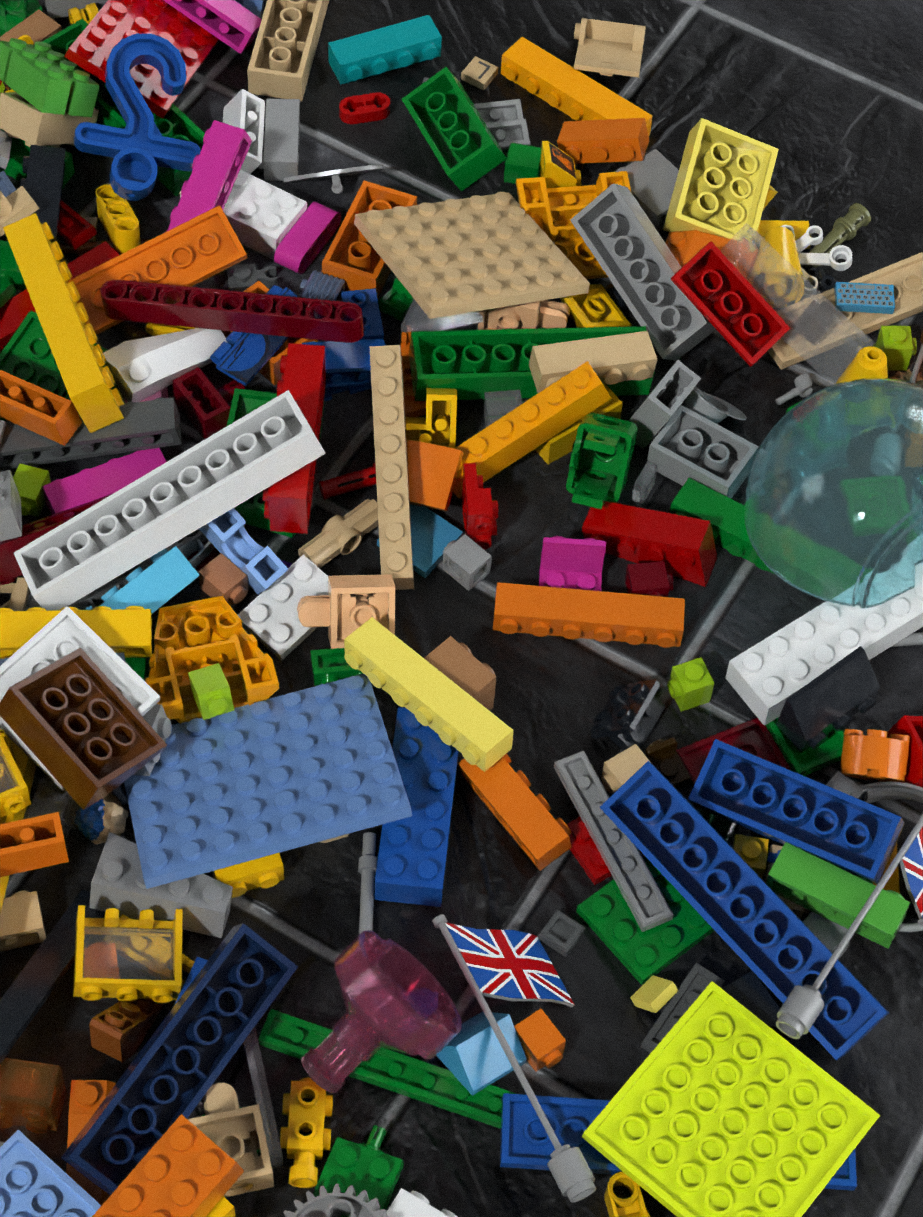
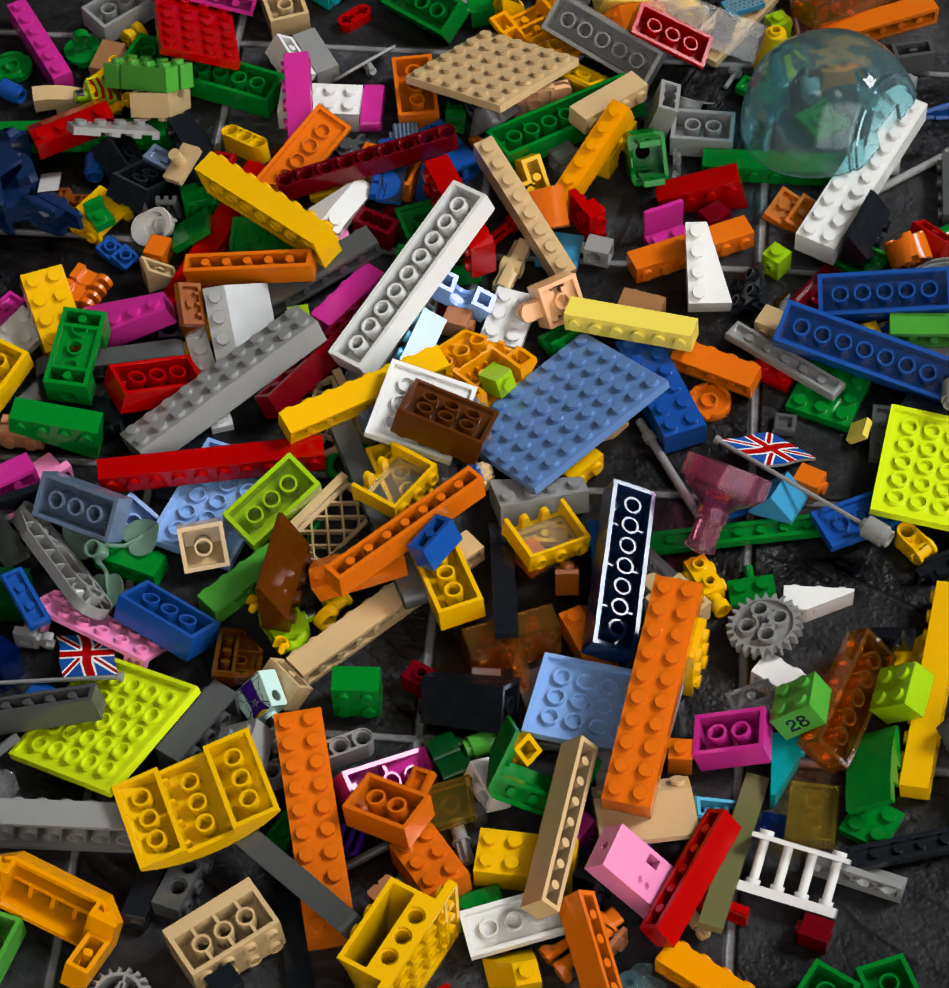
camera: 20 degrees left, 5 degrees down
(140, 144) = (236, 89): blue piece -> none
(480, 850) = (712, 401): none -> orange tile
(576, 661) = (704, 275): none -> white wedge
(755, 614) = (788, 210): none -> orange slope

